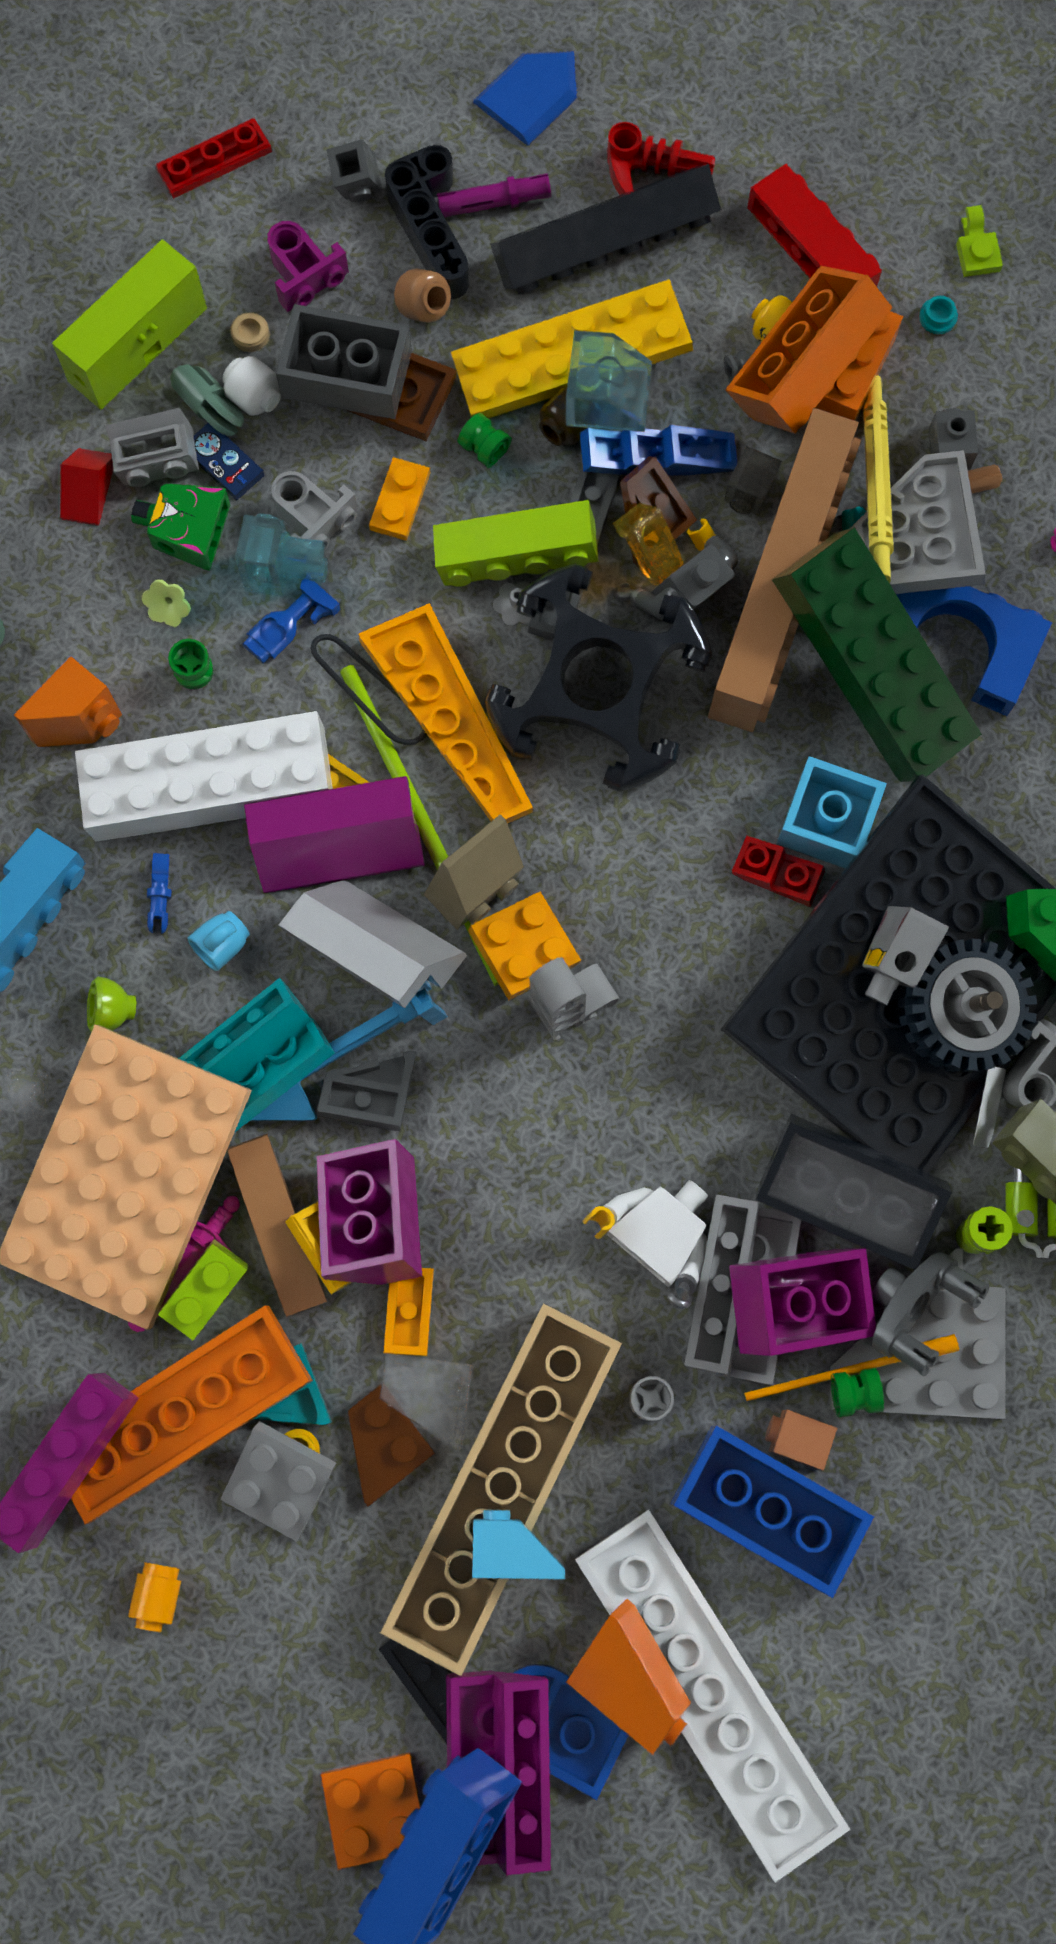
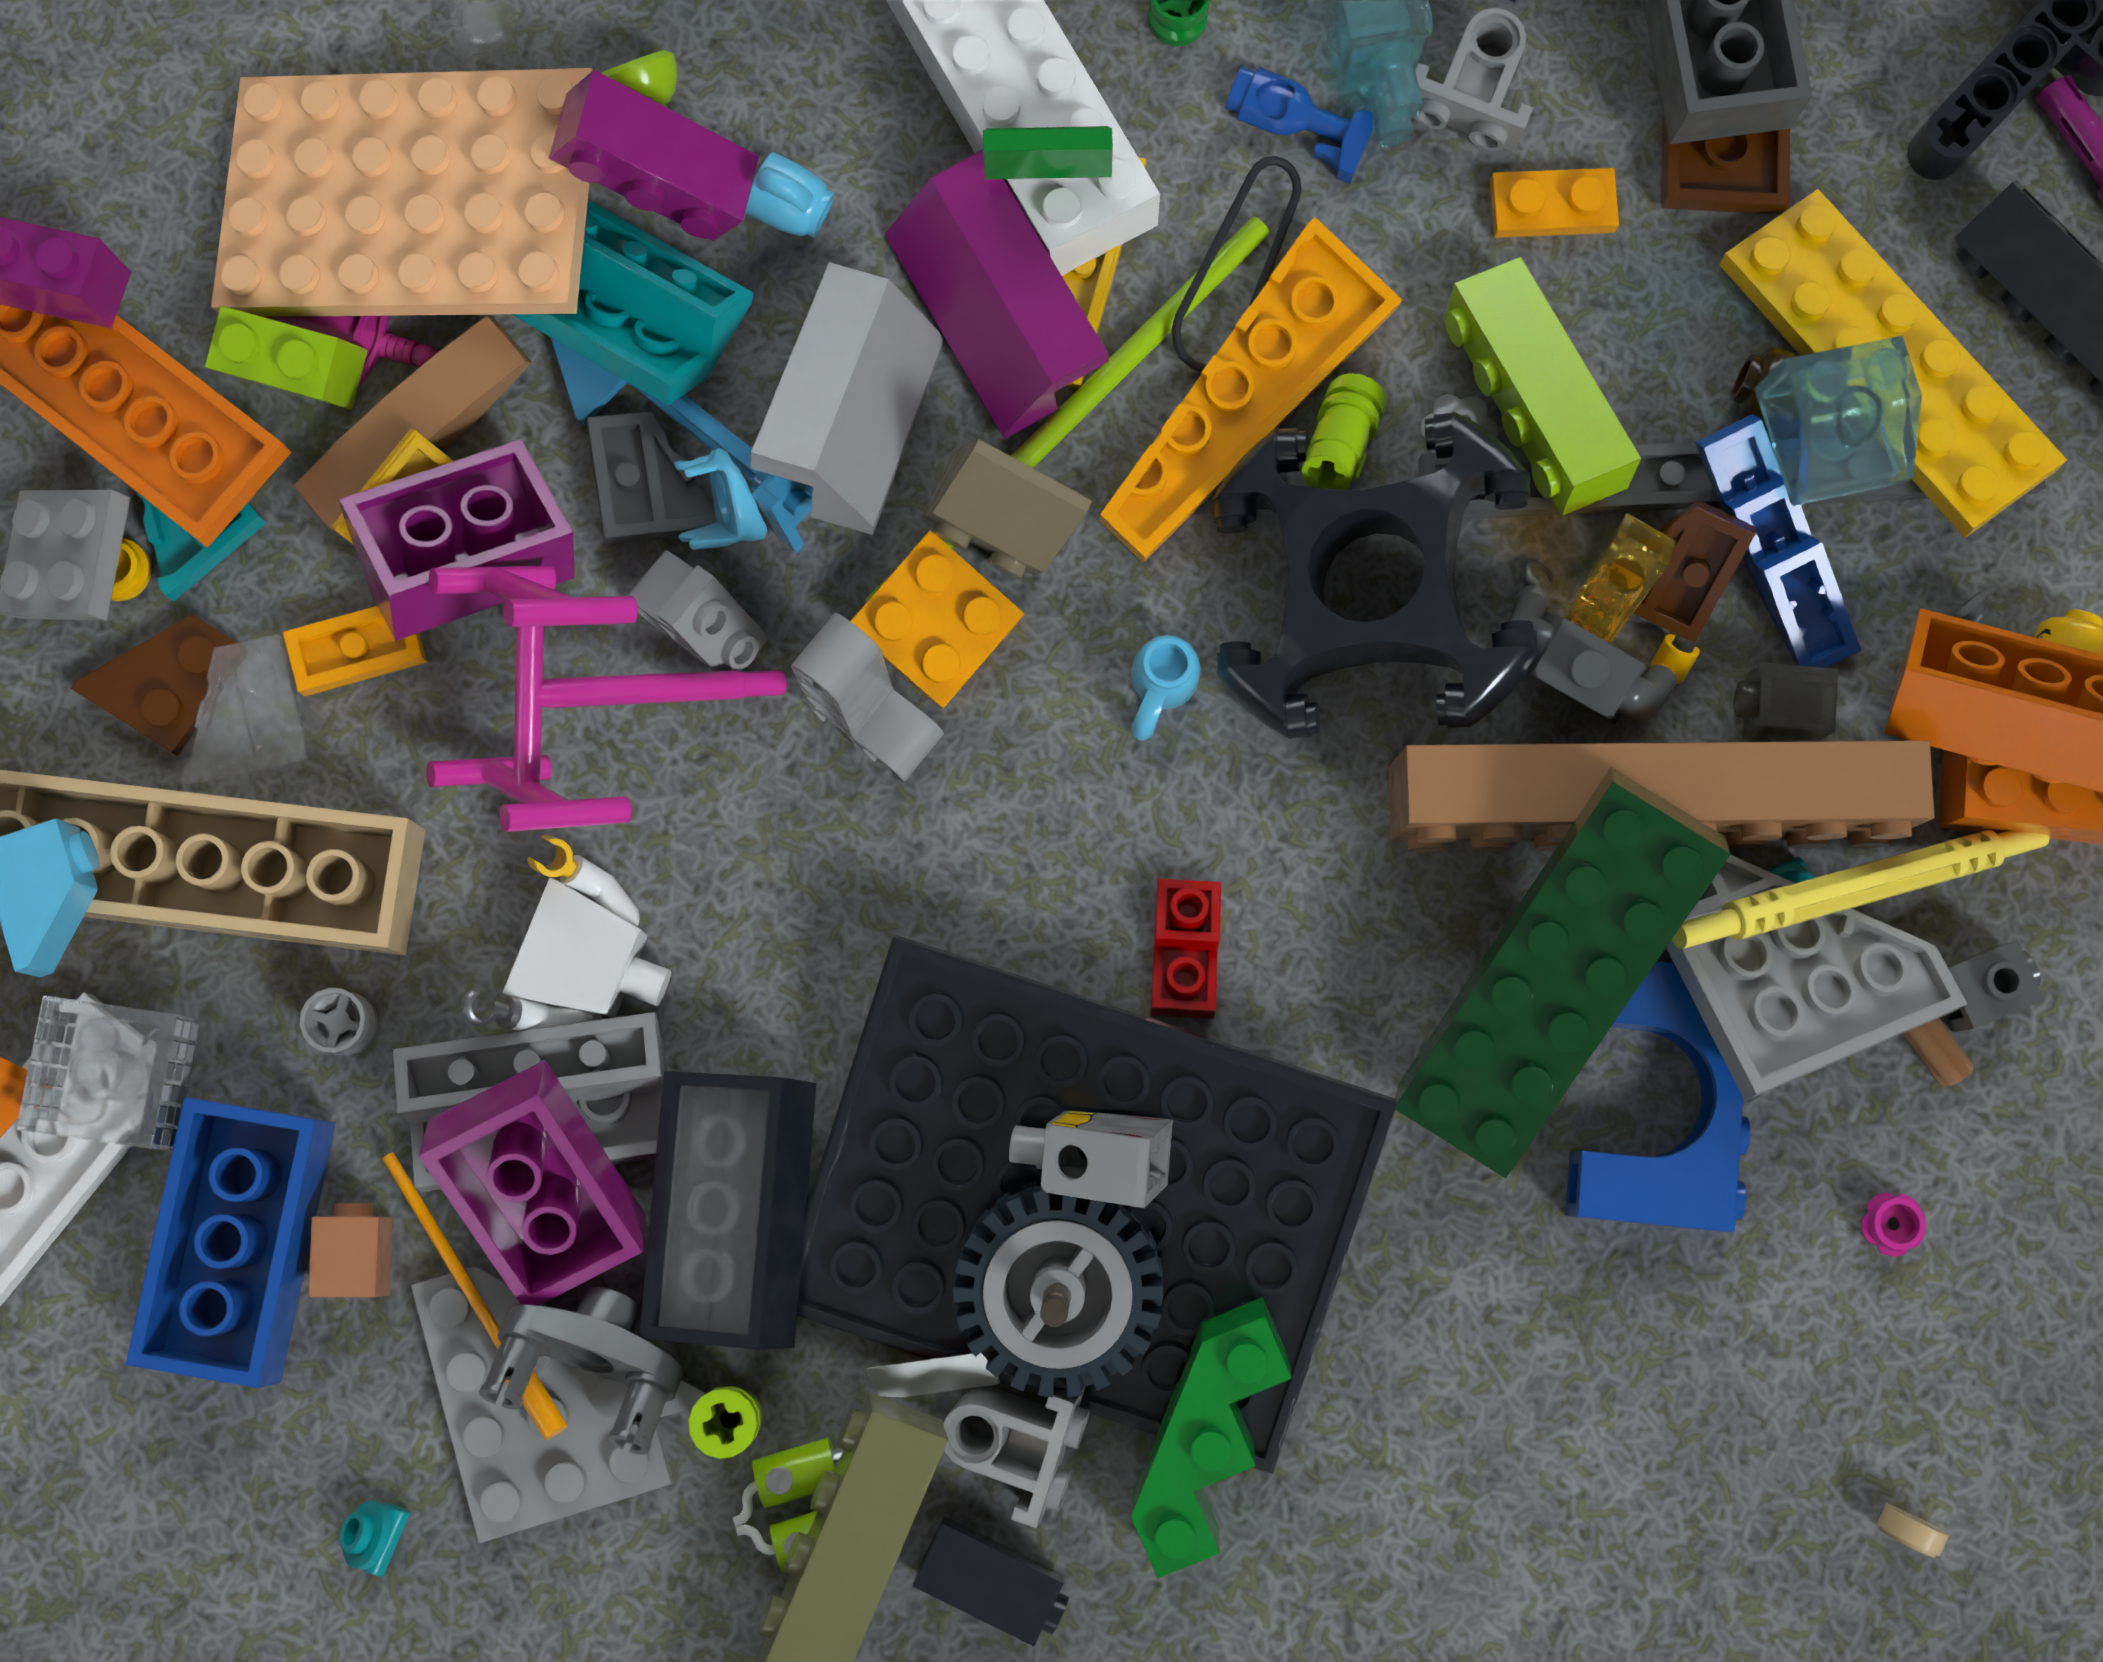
camera: 65 degrees right, 5 degrees up
(159, 891) = (851, 86): blue piece -> none
(168, 1006) = (653, 157): none -> magenta brick
(271, 761) = (1047, 152): none -> green tile
(422, 295) = (1888, 112): medium nougat head -> none
(423, 1046) = (733, 504): none -> medium azure piece
(468, 1087) = (698, 614): none -> light grey pin
(468, 1148) = (530, 607): none -> dark pink piece
(484, 440) = (1694, 286): green wheel -> none
(497, 662) = (1344, 429): none -> lime axle
(608, 824) = (1164, 678): none -> medium azure piece
(642, 1549) = (108, 1073): none -> clear brick
(831, 812) = (1297, 991): medium azure brick -> none
(857, 1392) = (432, 1308): green wheel -> none
(979, 1486) = (372, 1536): none -> teal plate

